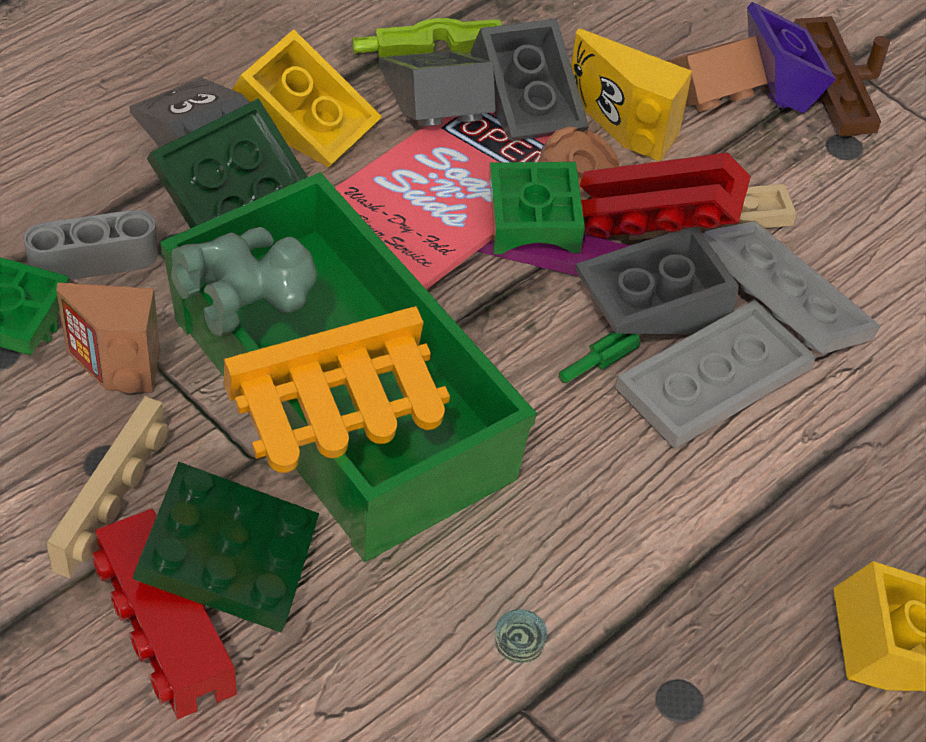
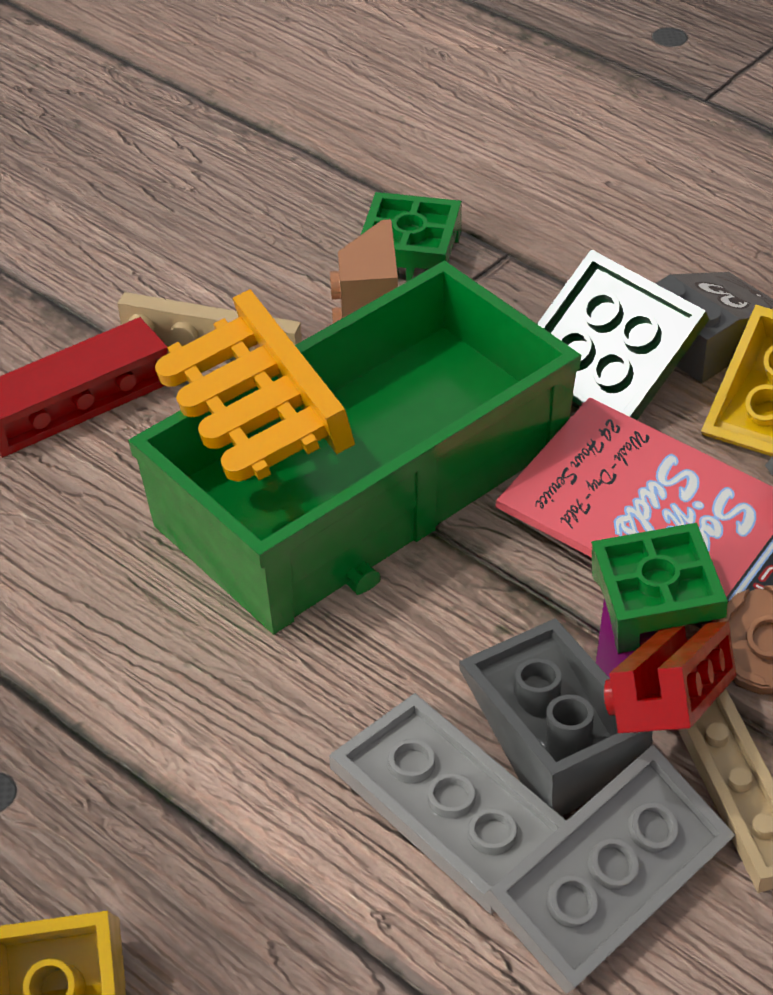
camera: 90 degrees right, 5 degrees down
(93, 244) = (505, 266): light grey beam -> none
(227, 547) = (108, 398): dark green plate -> none
(240, 279) = (387, 305): sand green animal -> none
(520, 636) = (62, 647): clear light blue tile -> none
(602, 354) = (459, 689): green axle -> none

